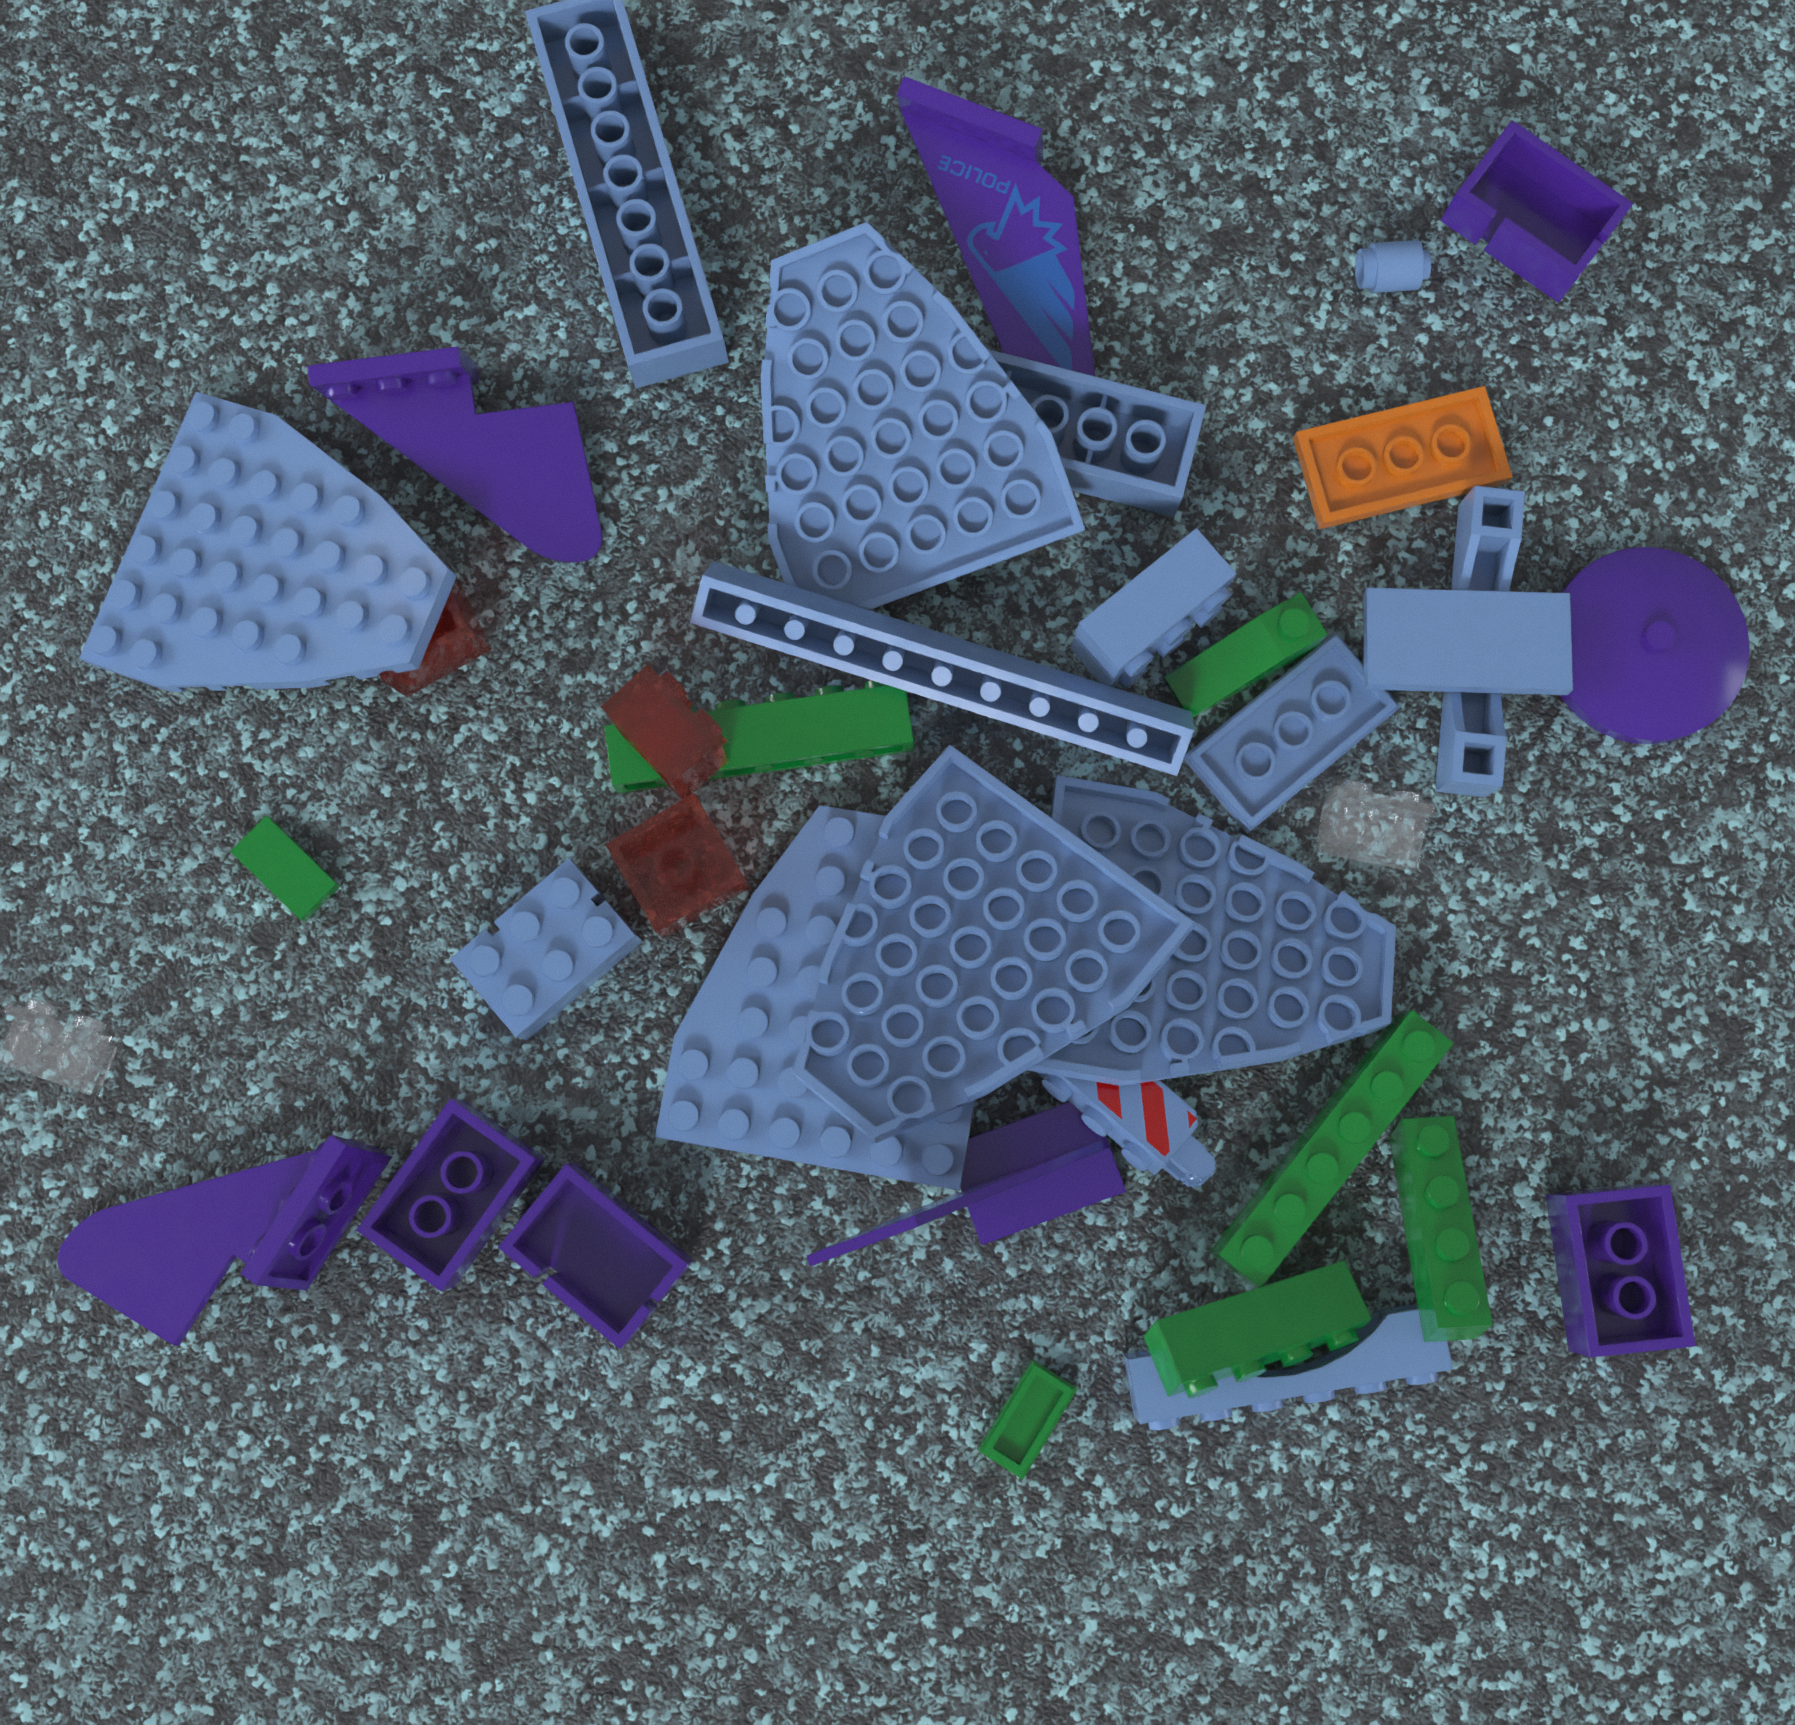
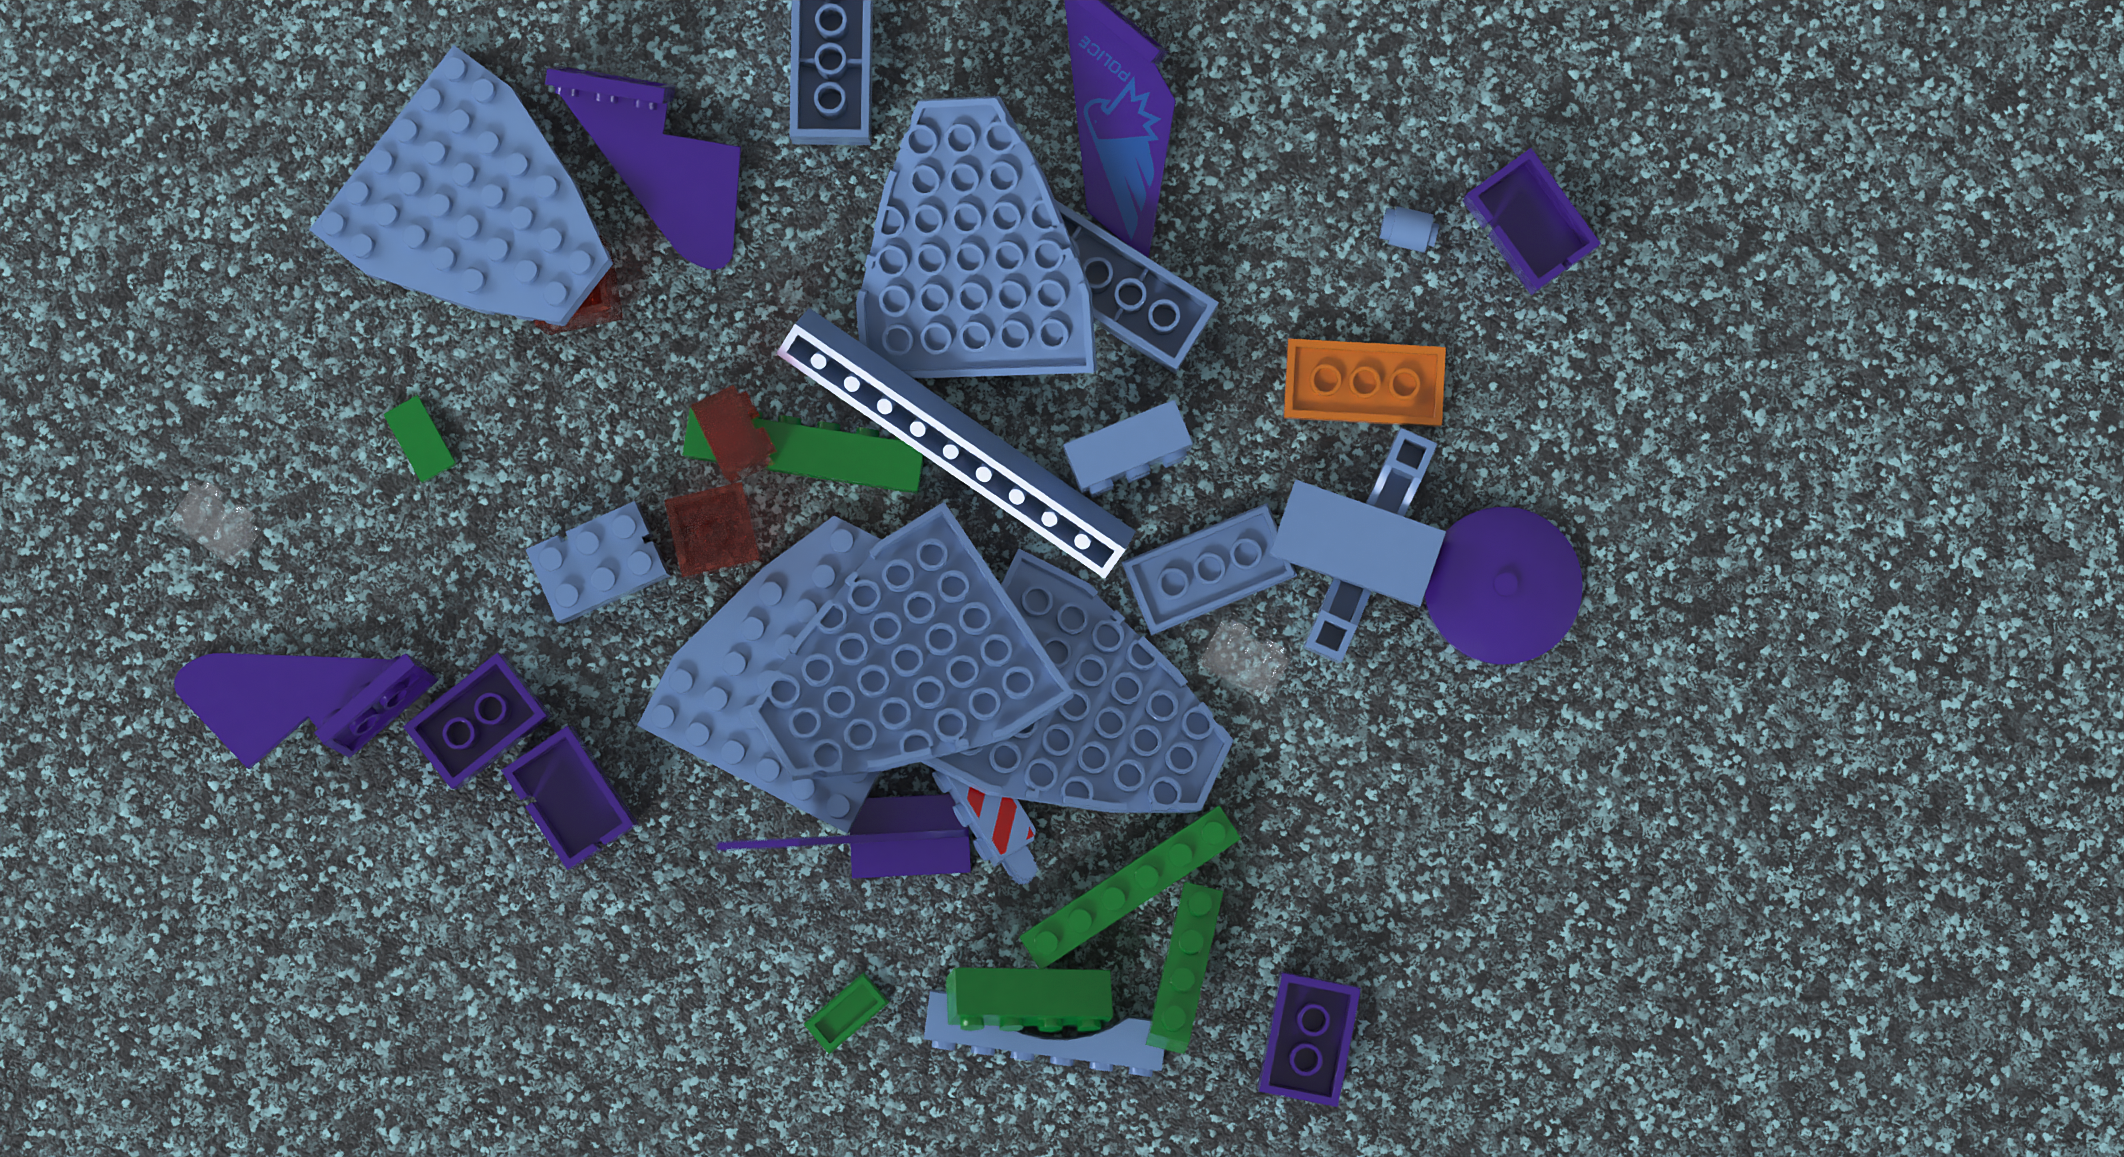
camera: 20 degrees right, 5 degrees up
(1247, 655) = (1190, 501): green slope -> none

